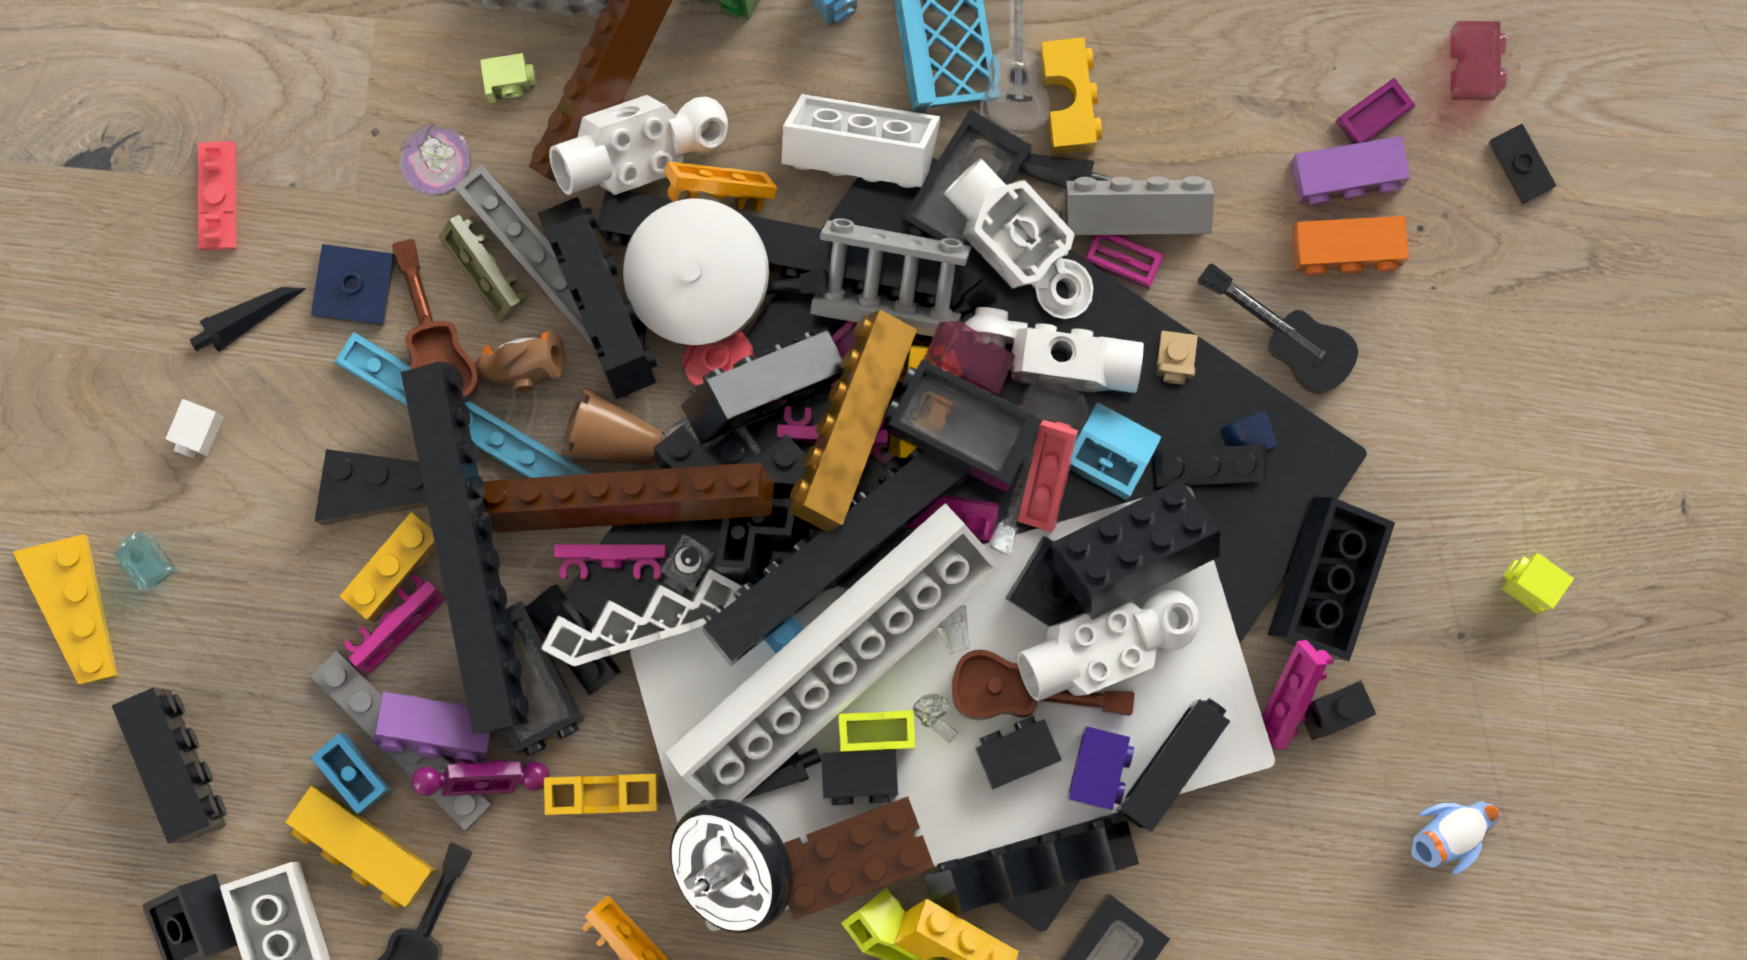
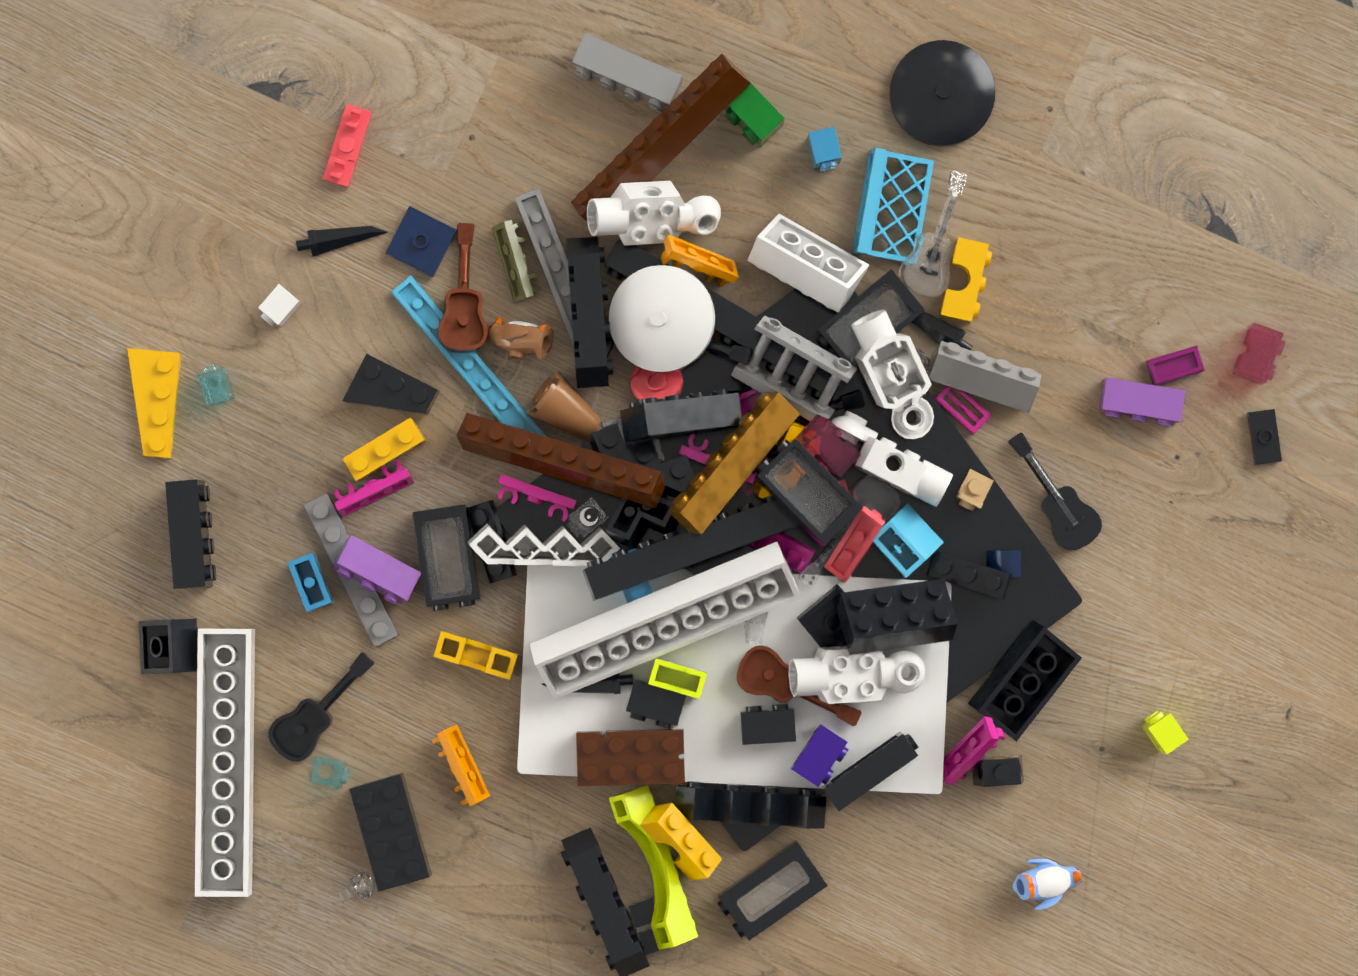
camera: 15 degrees right, 5 degrees up
(360, 846) = (300, 633): yellow brick -> none
(434, 160) = (507, 172): clear tile -> none
(465, 548) = (440, 456): black brick -> none
(479, 778) = (398, 616): magenta plate -> none
(507, 76) = (577, 131): yellowish green brick -> none
(715, 875) = (534, 738): flat silver wheel -> none
(930, 711) = (718, 677): clear plate -> none
(1350, 245) = (1122, 453): orange brick -> none

